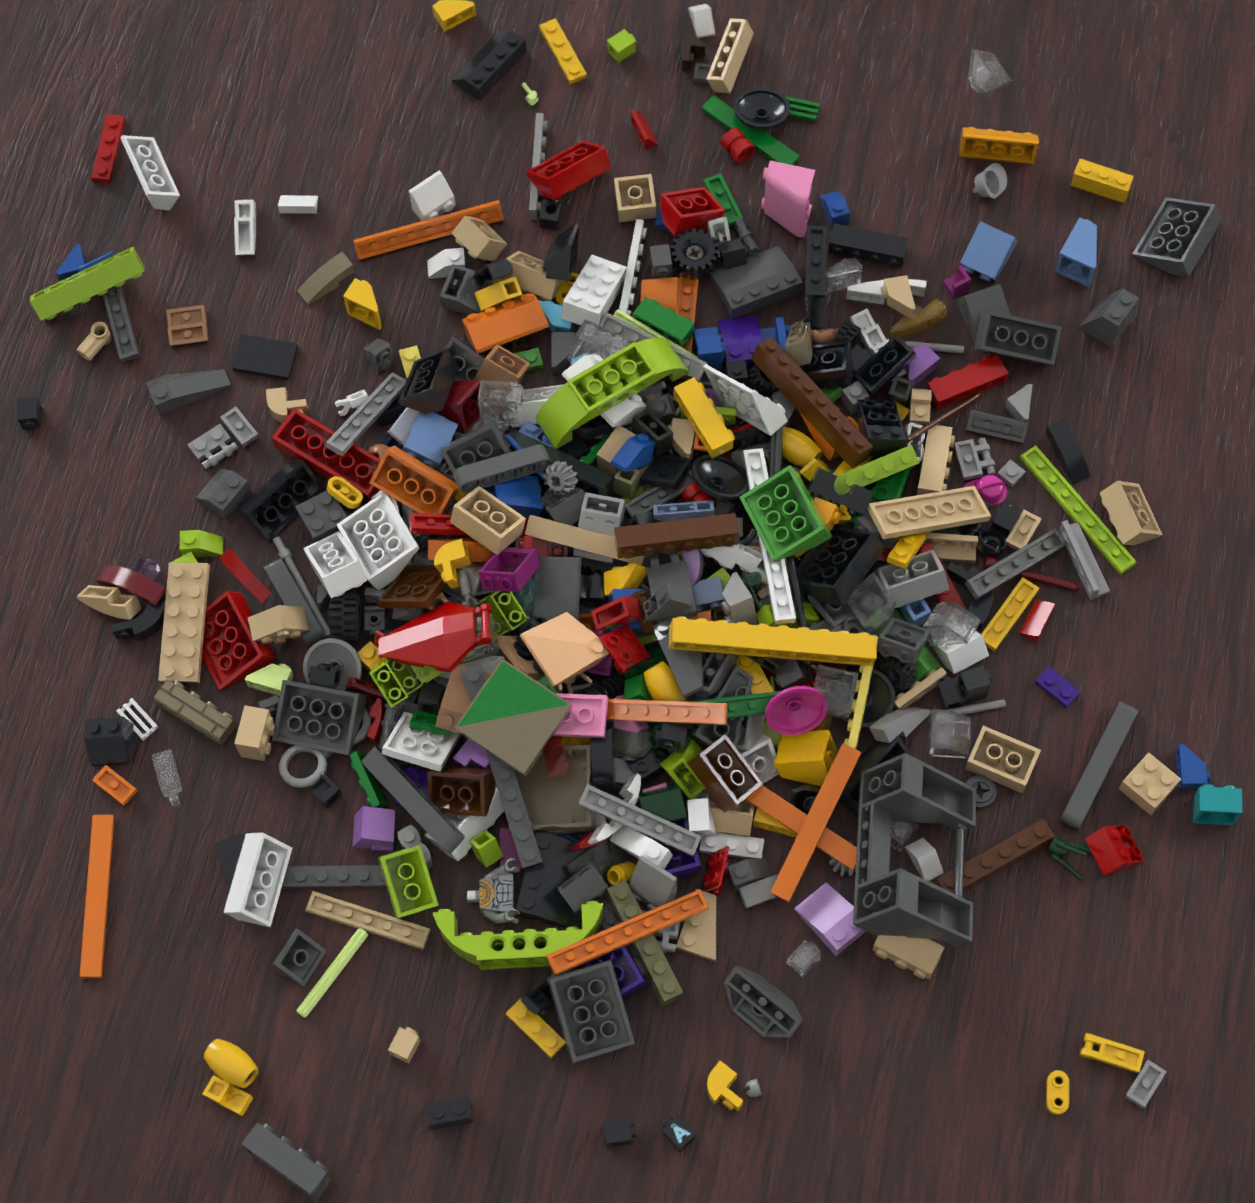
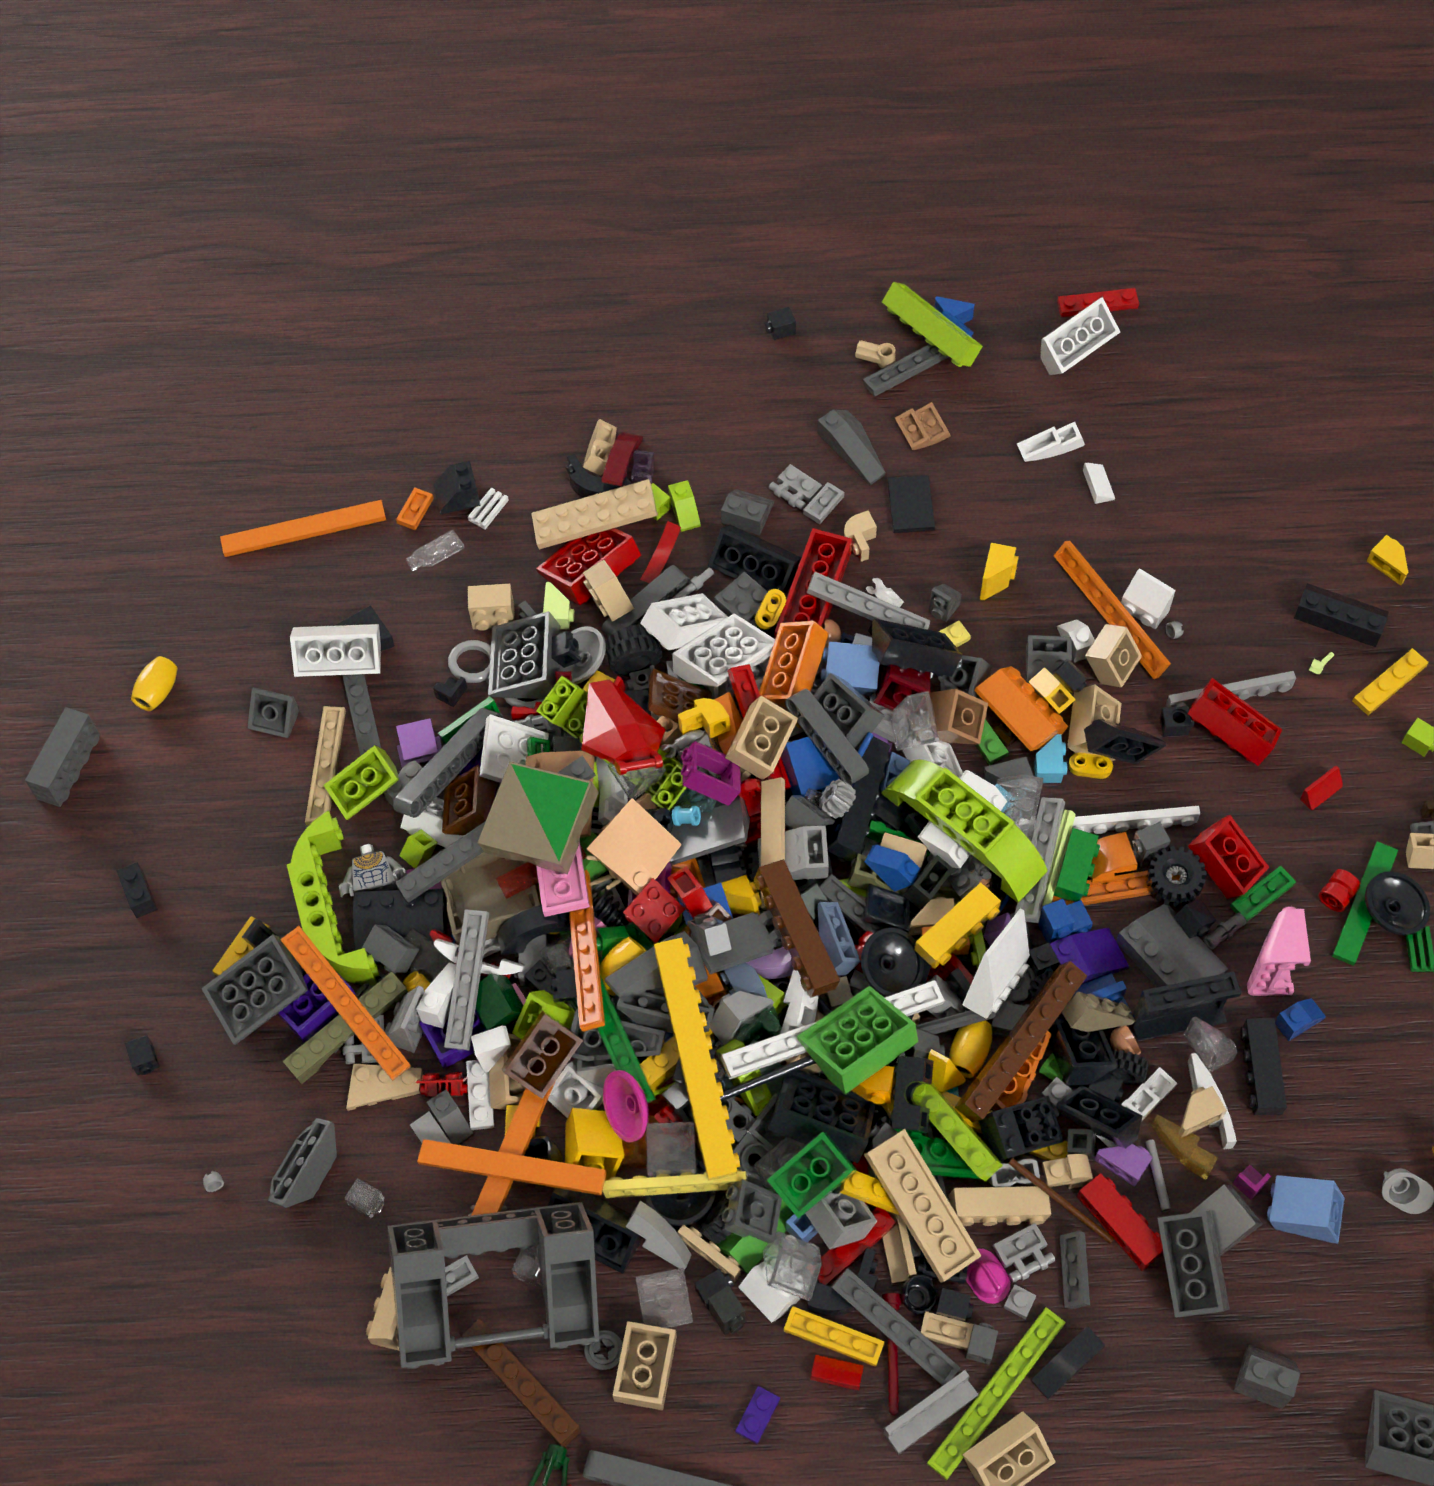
camera: 75 degrees right, 5 degrees down
(195, 712) = (506, 549): dark tan brick -> none
(227, 1095) = (122, 700): yellow slope -> none
(326, 278) = (1018, 531): dark tan slope -> none
(332, 972) = (265, 748): yellowish green axle -> none
(404, 1044) = (200, 831): tan brick -> none
(466, 190) = (1174, 629): none -> light grey hinge
(537, 604) = (686, 816): none -> medium azure bush
(593, 291) = (1088, 783): white brick -> none
(635, 197) = (1226, 796): tan brick -> none
(678, 1133) = (150, 1115): black brick -> none
(717, 1086) = (207, 1143): yellow brick -> none
(719, 230) = (1216, 897): white slope -> none
(830, 918) = (418, 1204): lavender slope -> none
(893, 578) = (811, 1174): none -> green slope
(925, 859) = (507, 1305): white slope -> none
(980, 707) = (706, 1324): light grey bar -> none
(1019, 403) = (1113, 1292): light grey slope -> none
(1040, 506) = (982, 1343): none -> dark grey brick
(1079, 253) = (1345, 1316): medium blue slope -> none

